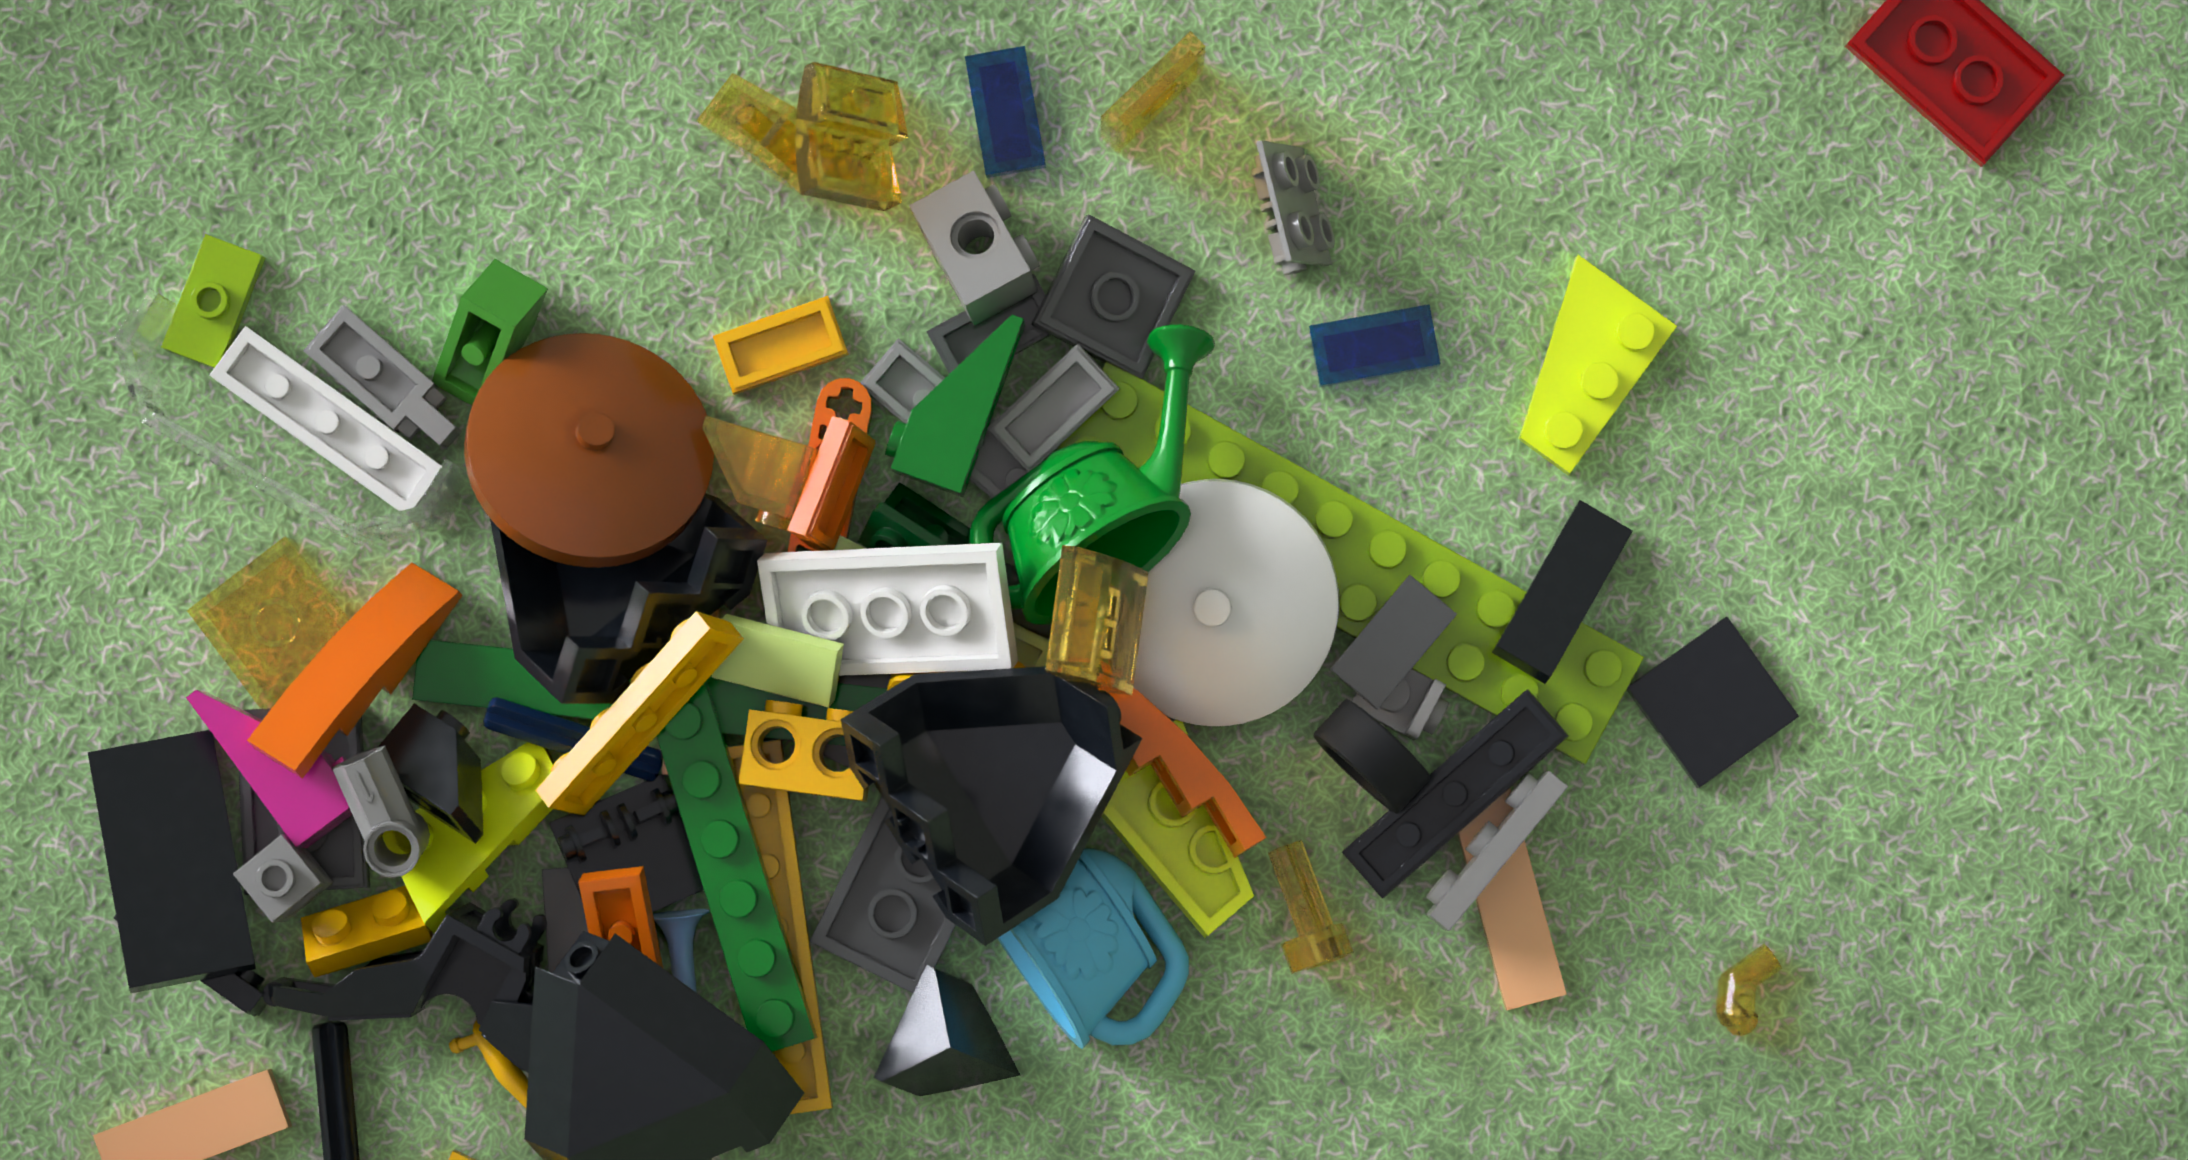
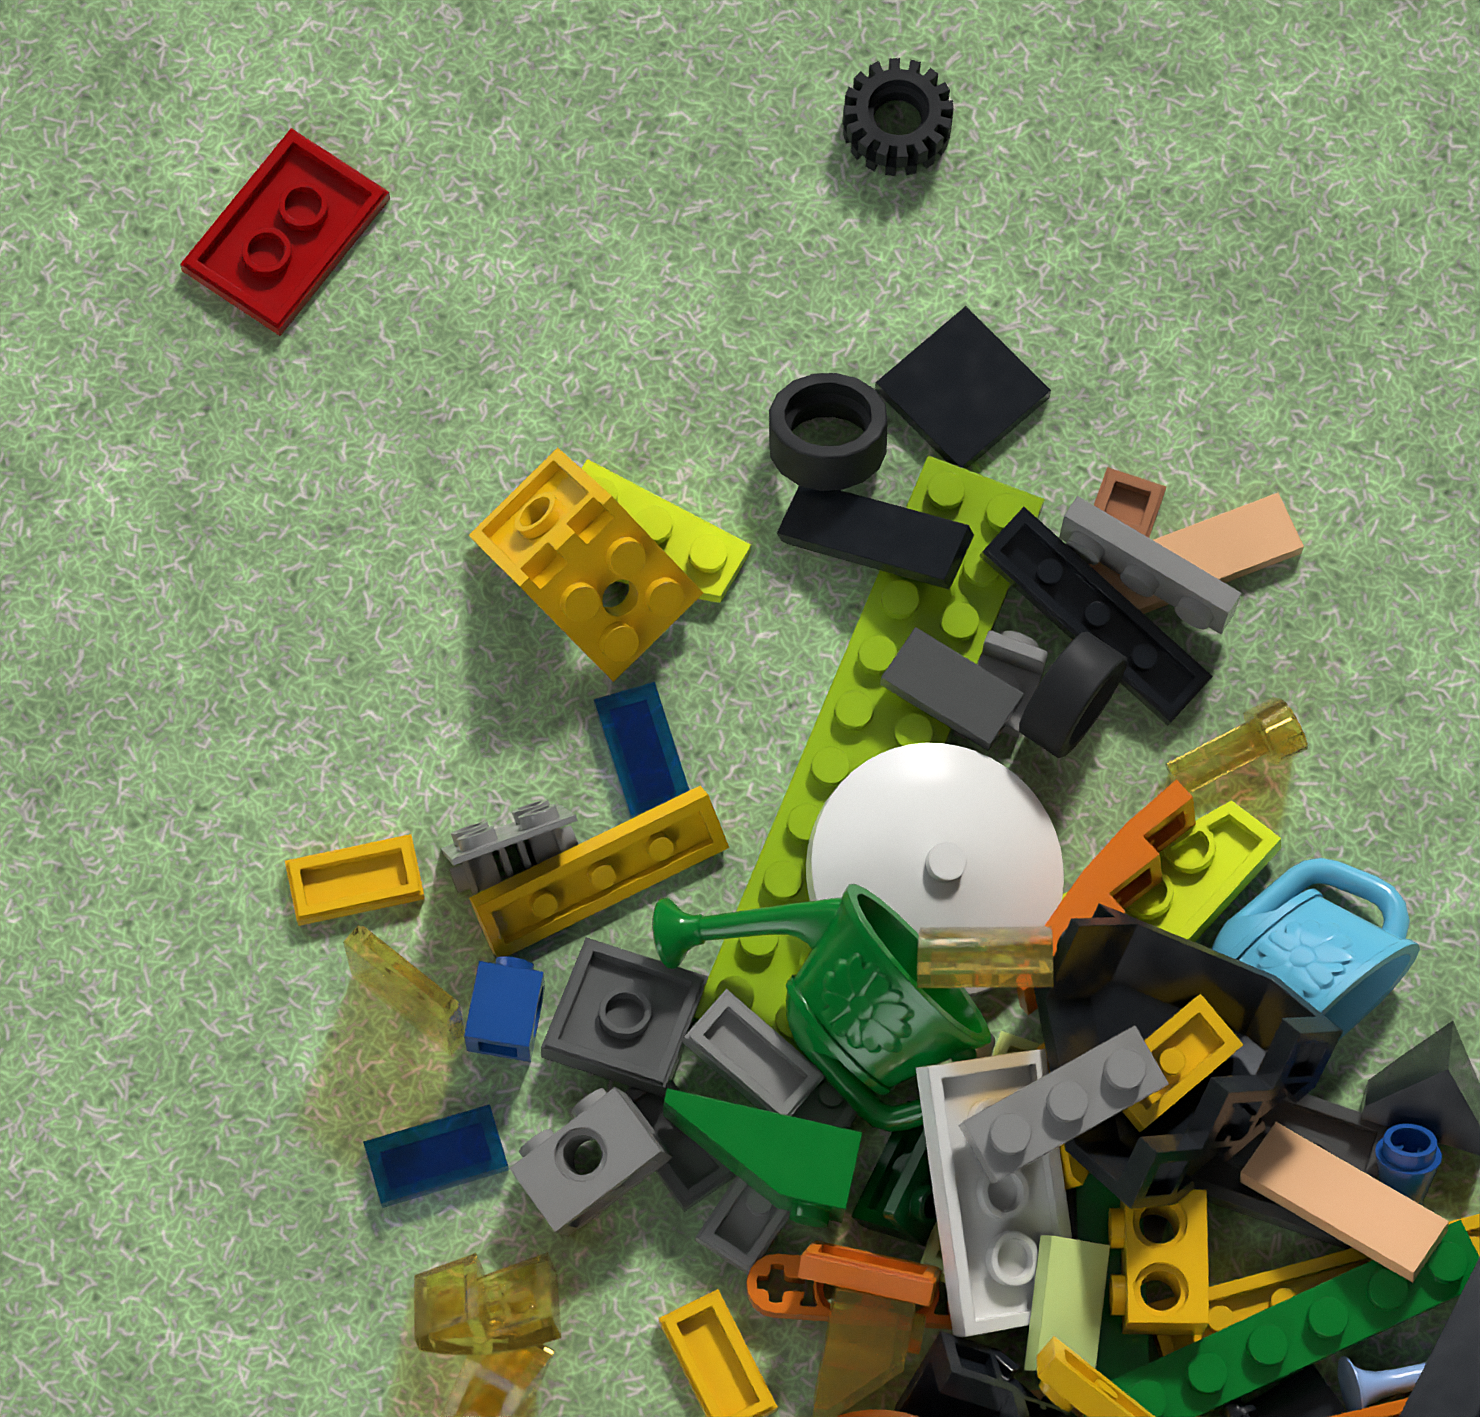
camera: 100 degrees left, 15 degrees down
(842, 931) = (1344, 1201): none -> light nougat tile
(872, 998) = (1408, 1160): none -> blue cone
(949, 674) = (1063, 1104): none -> light grey plate
(985, 785) = (1186, 1052): none -> yellow plate
(1132, 187) = (505, 1009): none -> blue brick
(1254, 289) = (599, 872): none -> yellow plate
(1279, 64) = (354, 880): none -> yellow tile
(1571, 844) = (1130, 499): none -> nougat tile
(1572, 290) = (567, 544): none -> yellow bracket
(1716, 561) = (828, 466): none -> black tyre
(1738, 990) = (1245, 335): clear yellow arm -> none
(2048, 670) = (903, 85): none -> black tyre

